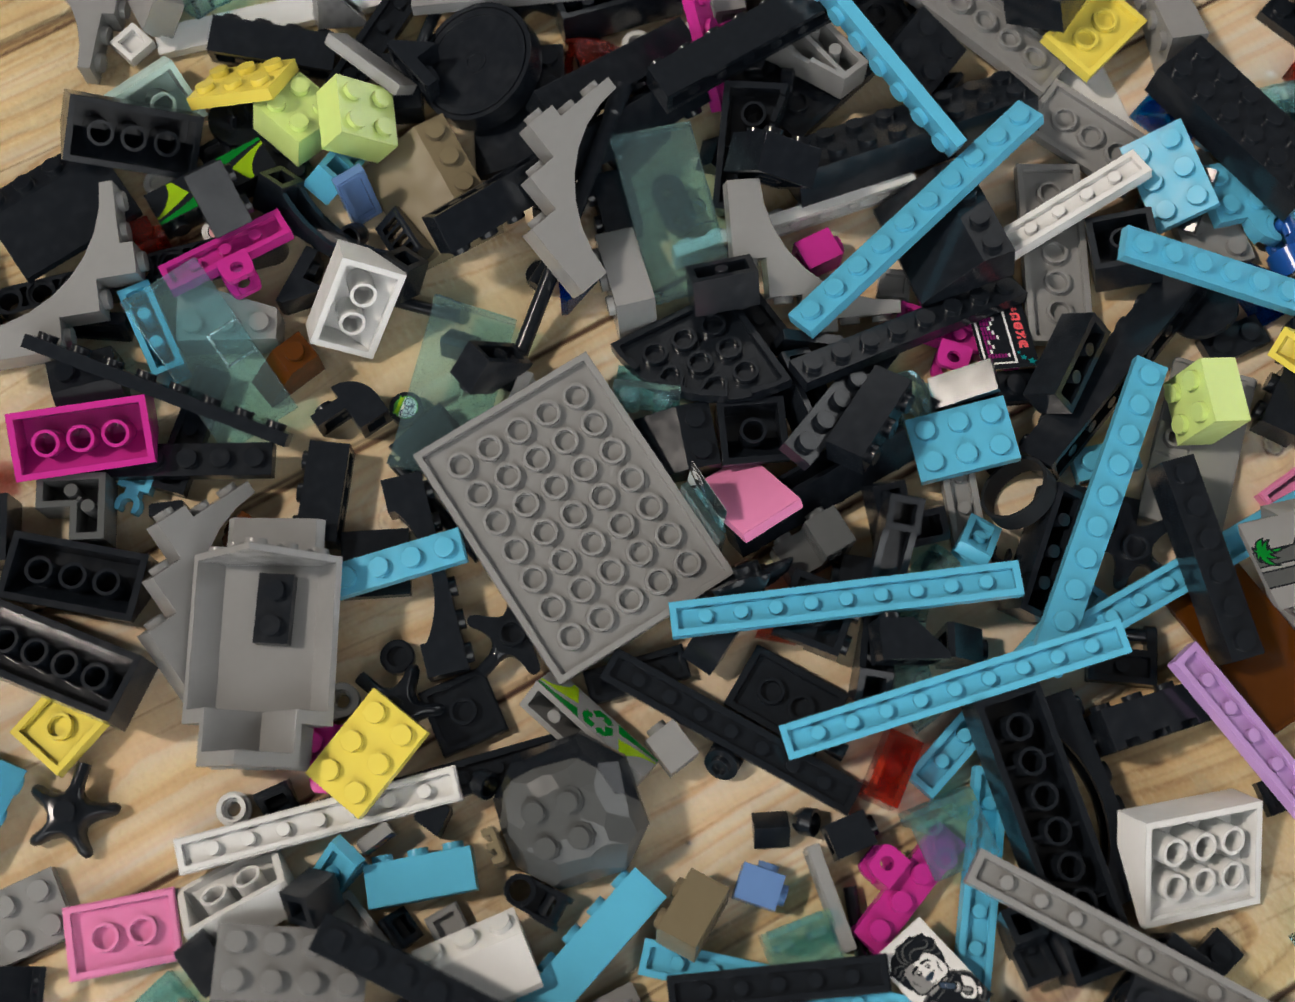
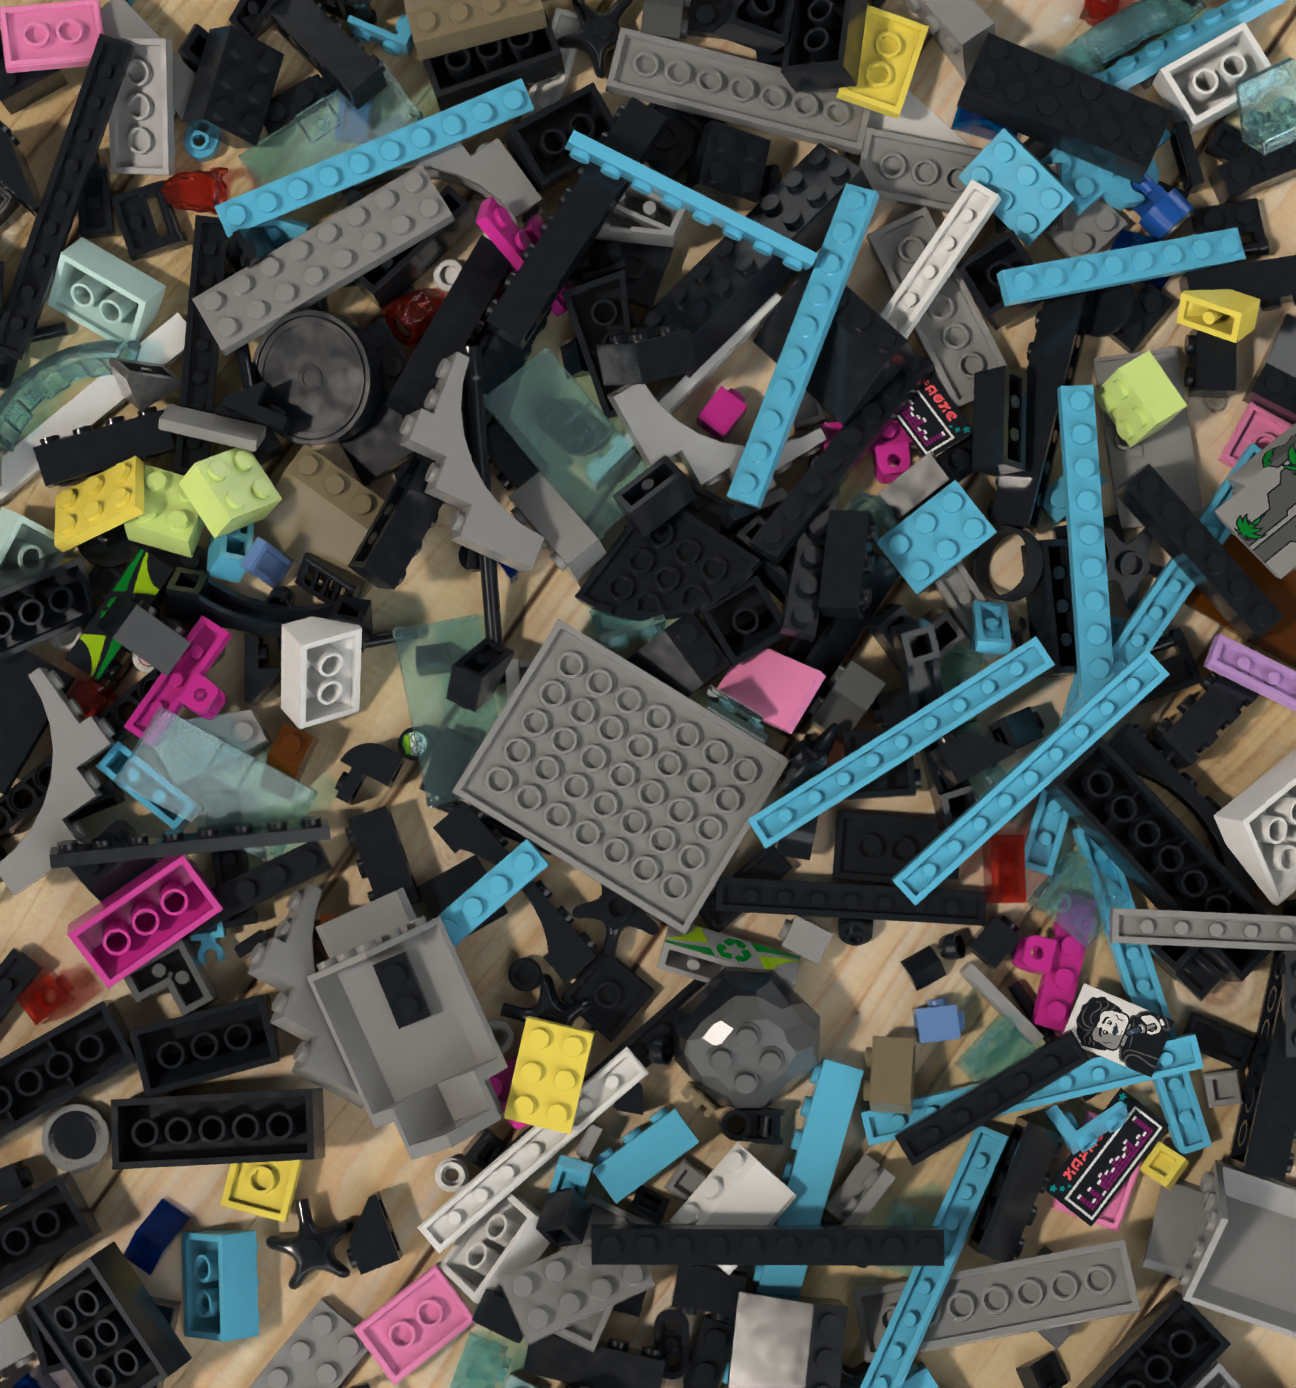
camera: 25 degrees left, 10 degrees up
(130, 831) = (373, 1238): none -> black slope

